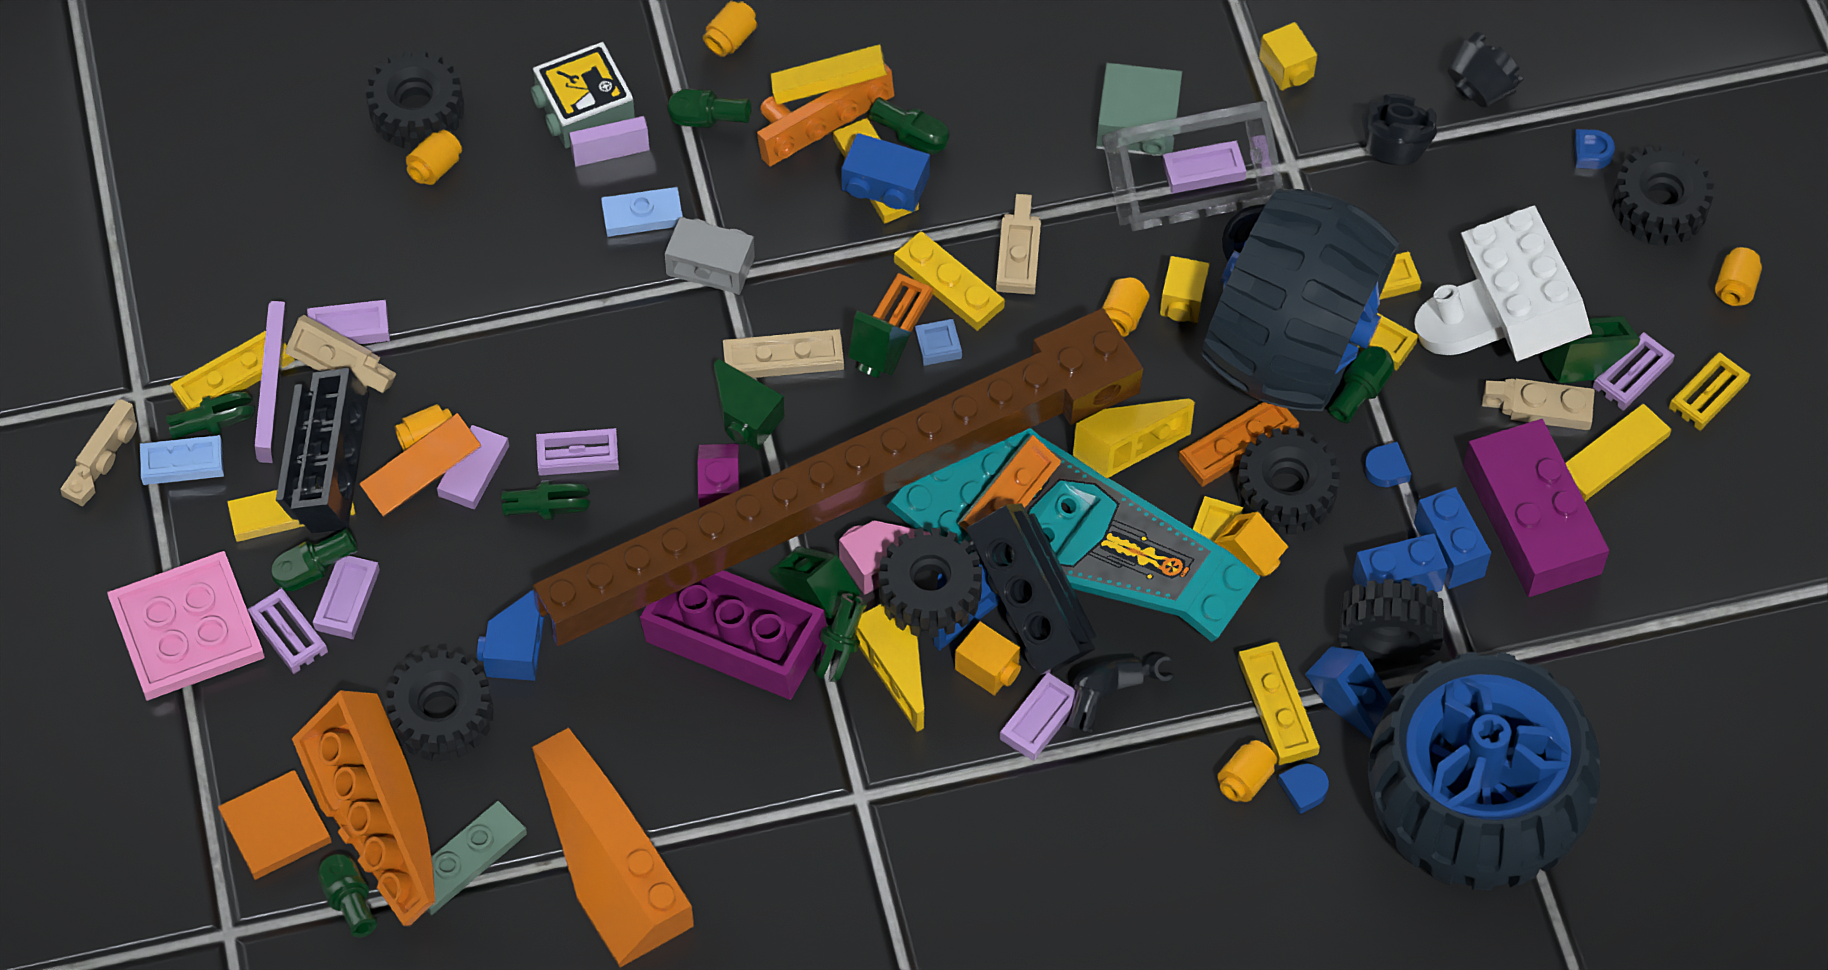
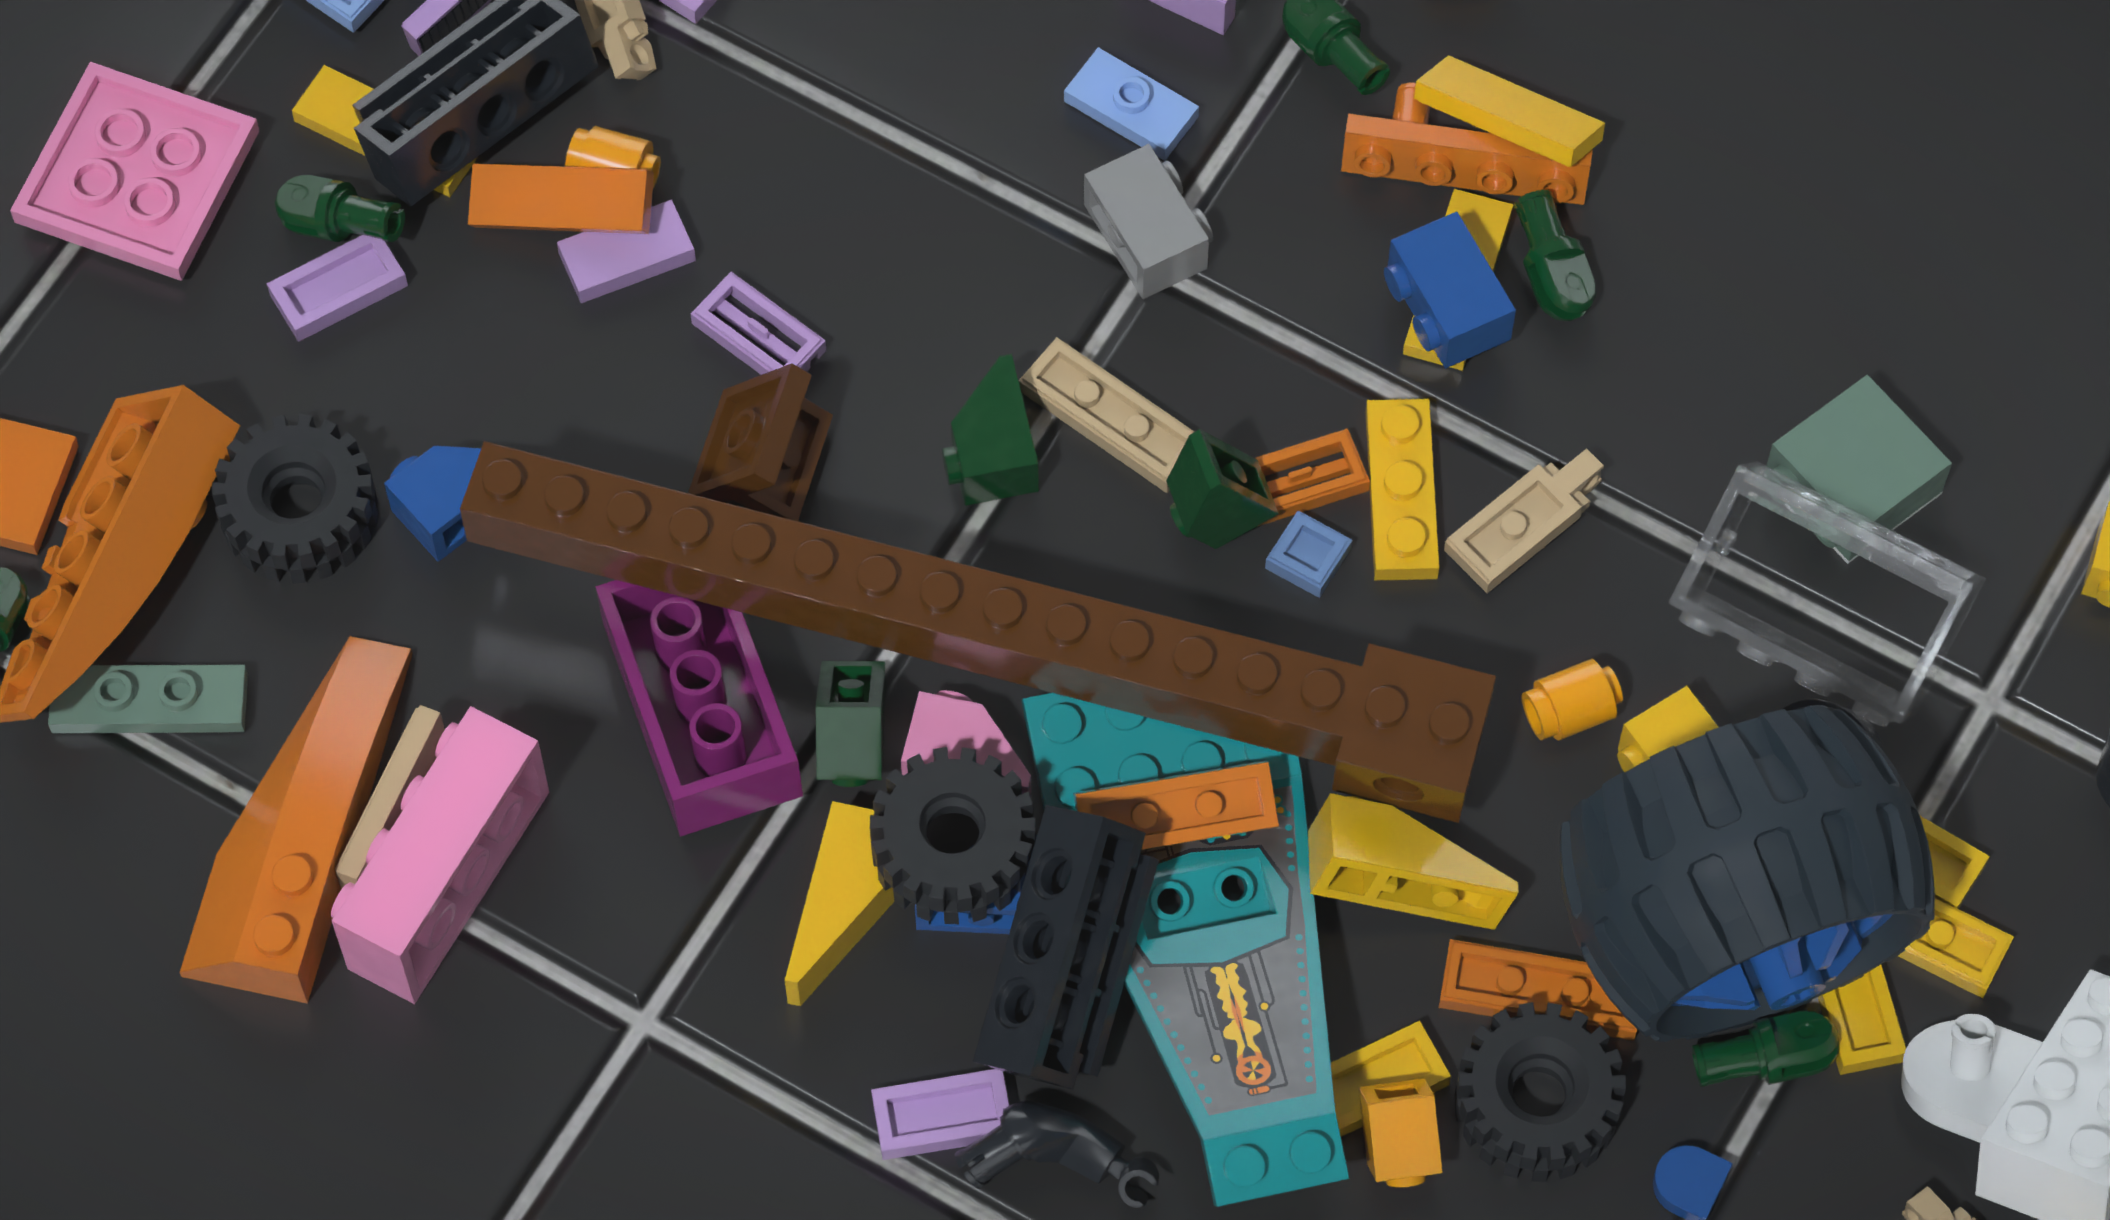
camera: 45 degrees right, 5 degrees up
(304, 655) = (230, 314): lavender tile -> none
(544, 500) = (654, 356): dark green arm -> none
(637, 492) = (763, 444): none -> reddish brown bracket
(640, 796) = (410, 758): none -> tan tile
(695, 797) = (440, 854): none -> bright pink brick
(717, 472) = (877, 493): magenta slope -> none
(840, 637) = (797, 810): dark green arm -> none
(988, 659) = (947, 989): light orange brick -> none
(1204, 167) = (1870, 609): lavender tile -> none

